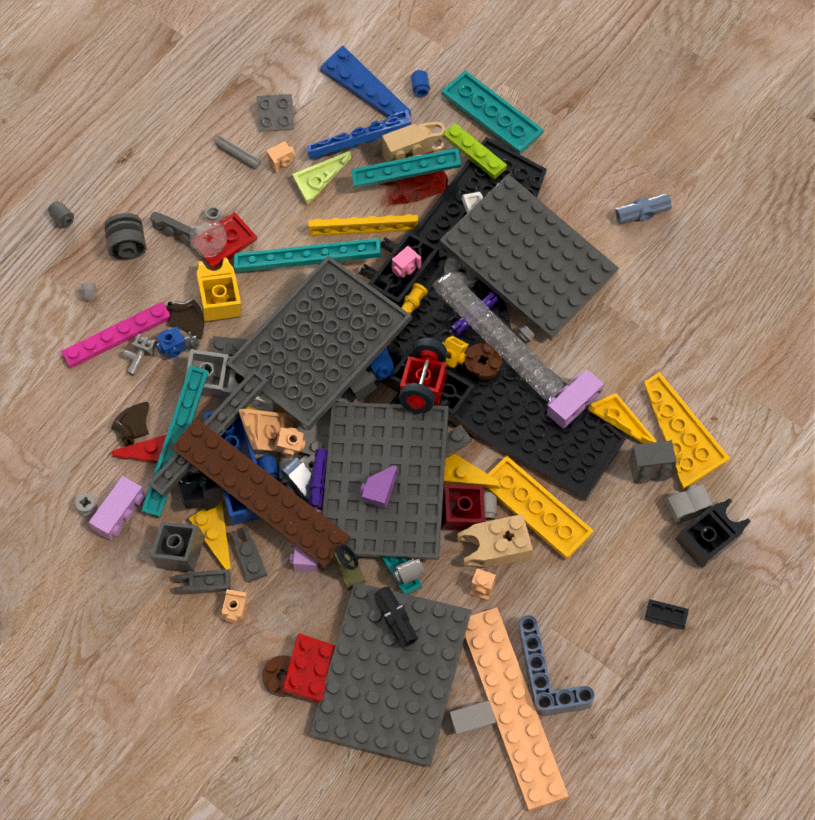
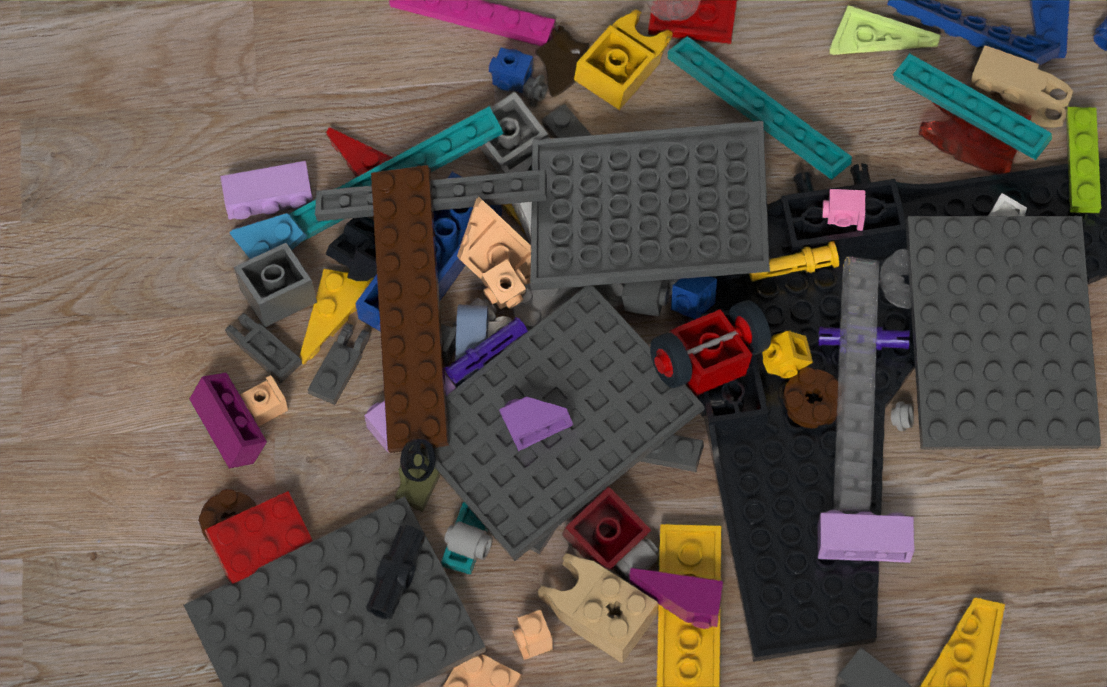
camera: 50 degrees right, 0 degrees up
(89, 508) = (240, 164): light grey wheel -> none
(132, 423) = (382, 118): dark brown arm -> none
(142, 349) = (483, 48): light grey arm -> none
(144, 529) = (268, 234): none -> dark azure wing
(229, 630) = (227, 420): none -> magenta brick
(269, 464) = (459, 291): blue brick -> none
(362, 225) = (859, 129): yellow plate -> none
(464, 473) = (649, 492): yellow wing -> none
(530, 500) = (687, 597): none -> magenta slope
(619, 415) = (900, 605): yellow wing -> none

